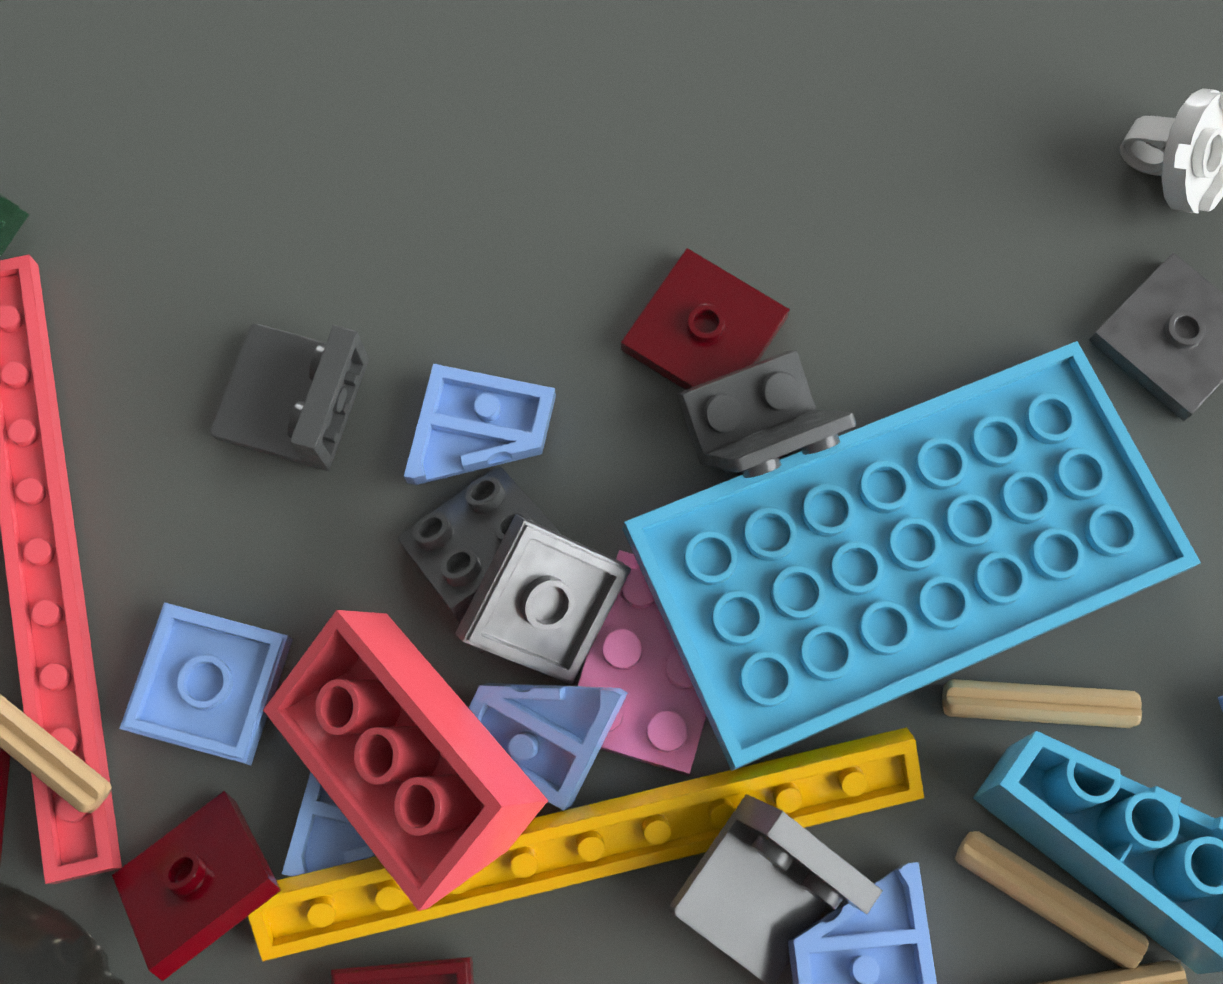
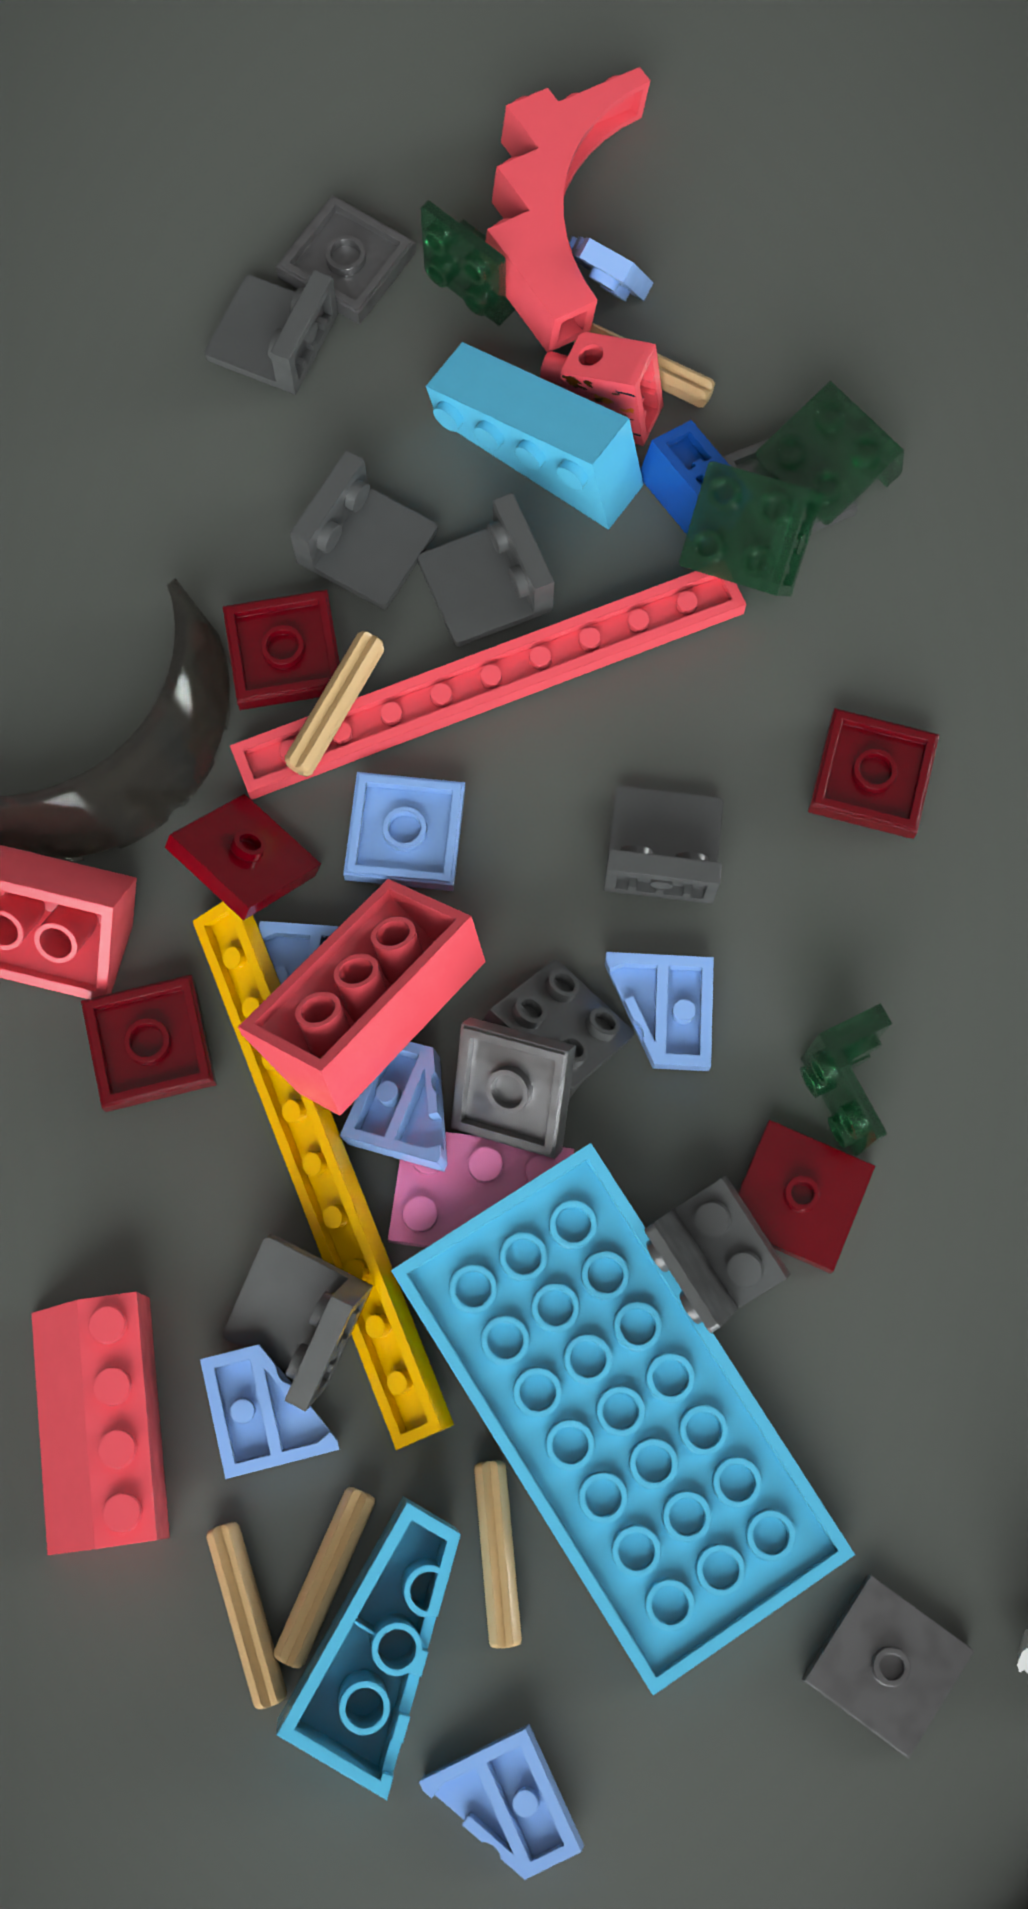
camera: 80 degrees right, 0 degrees up
(259, 166) = (874, 773): none -> dark red plate
(594, 260) = (830, 1075): none -> clear green bracket

